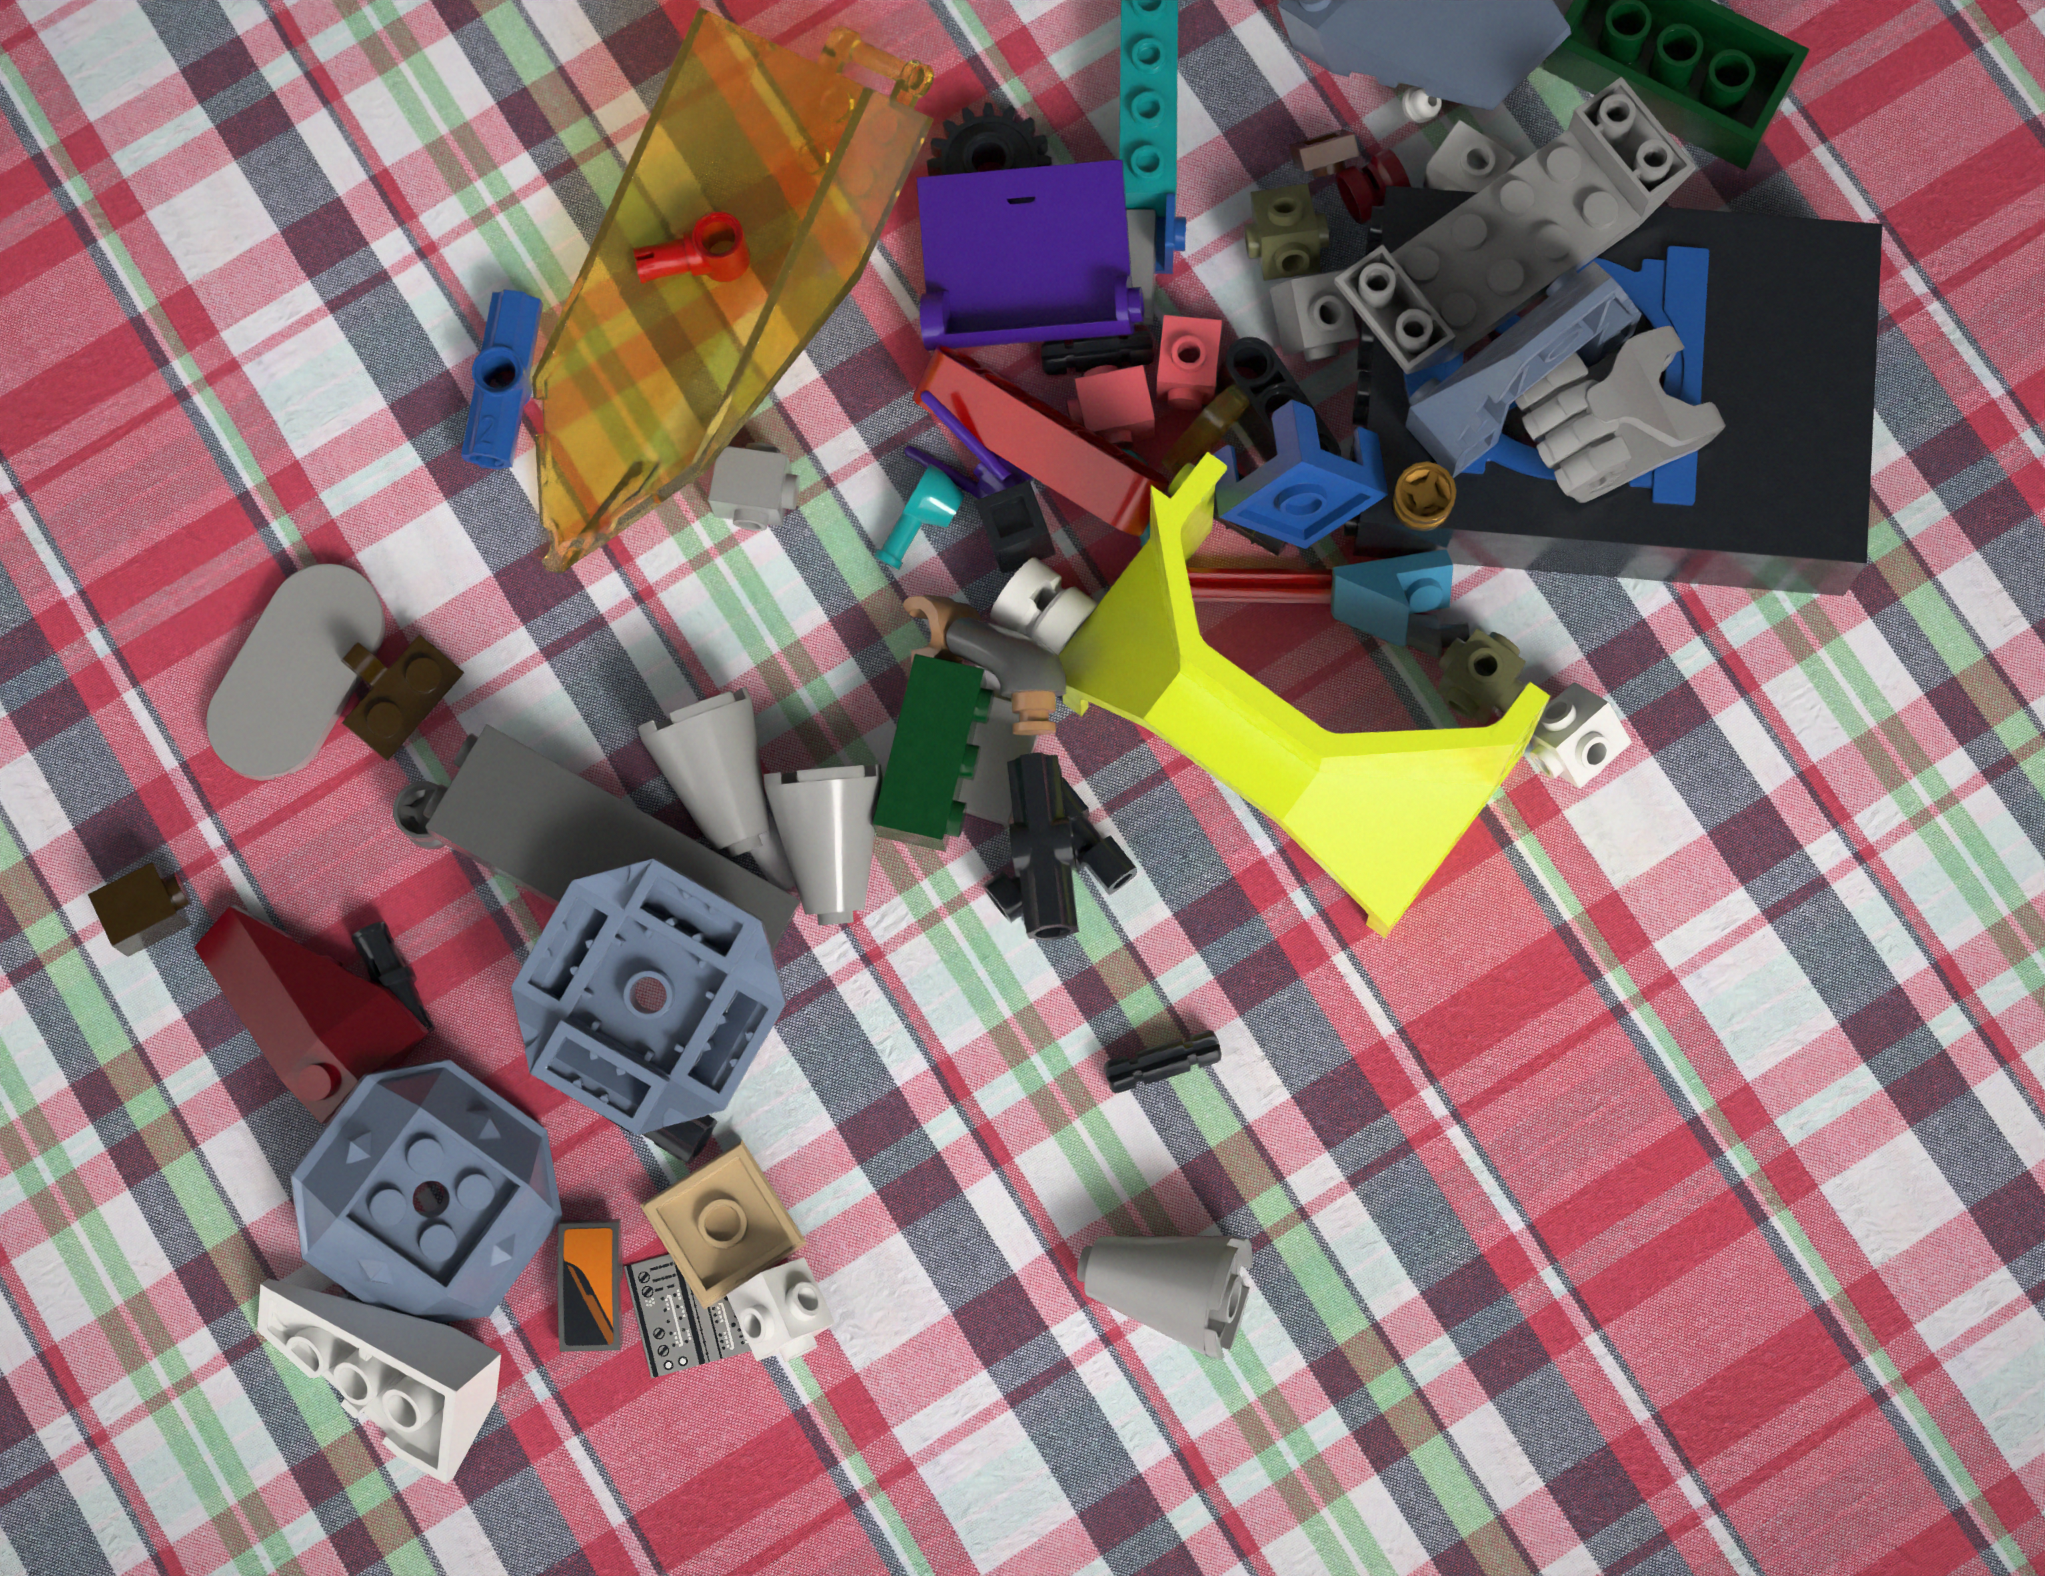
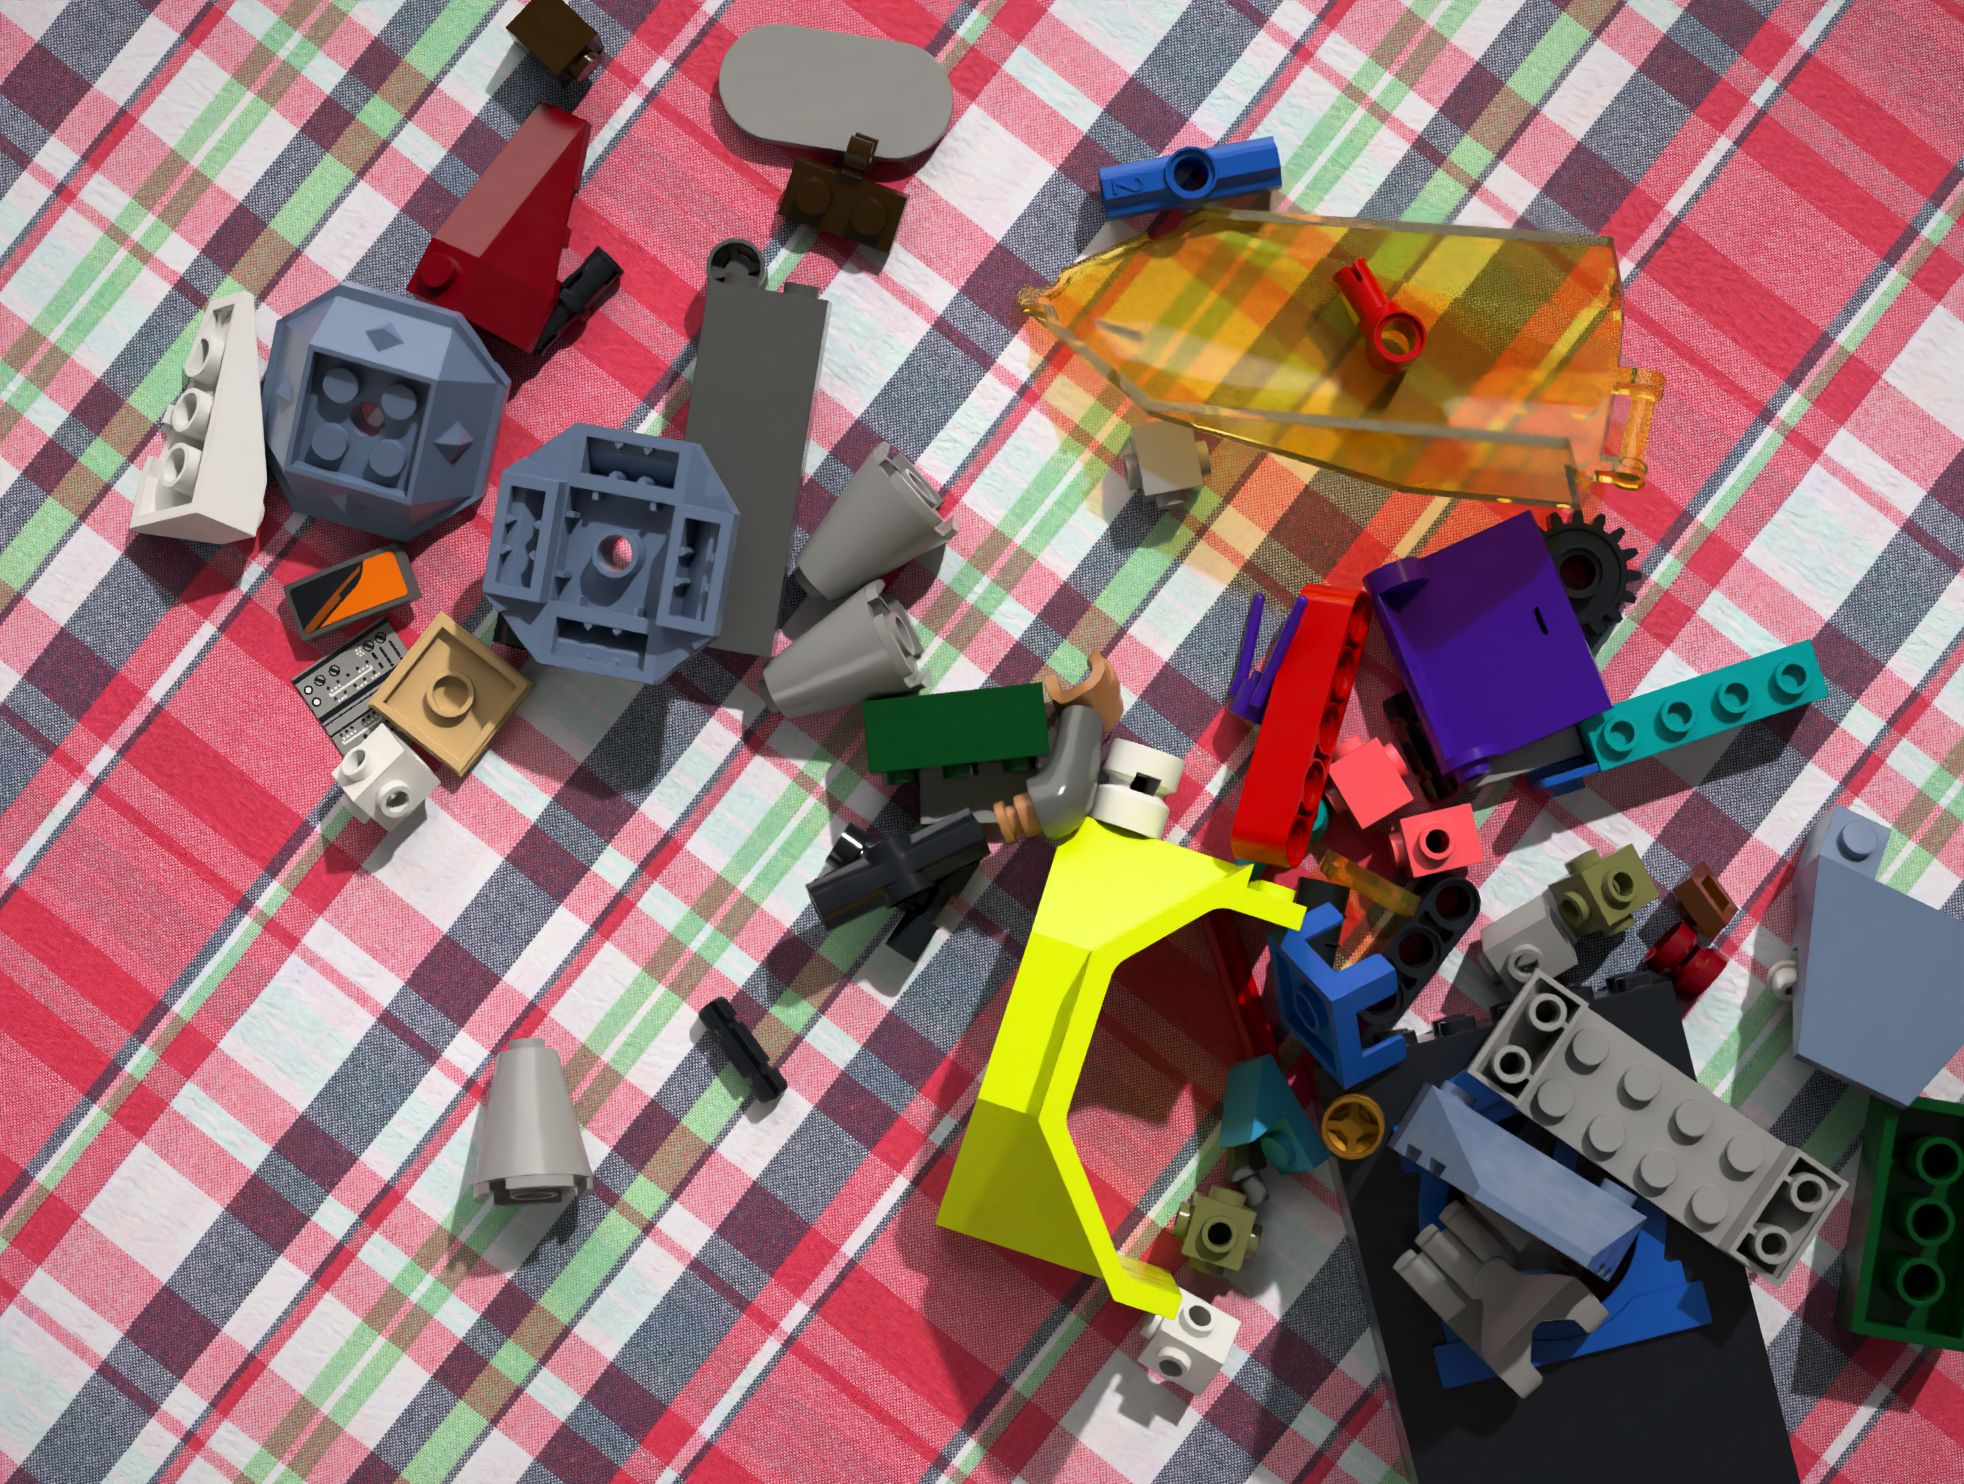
camera: 65 degrees right, 10 degrees up
(931, 503) = (1211, 639): teal bar -> none
(1015, 526) = (1211, 730): black panel -> none
(1468, 161) = (1751, 1054): white brick -> none

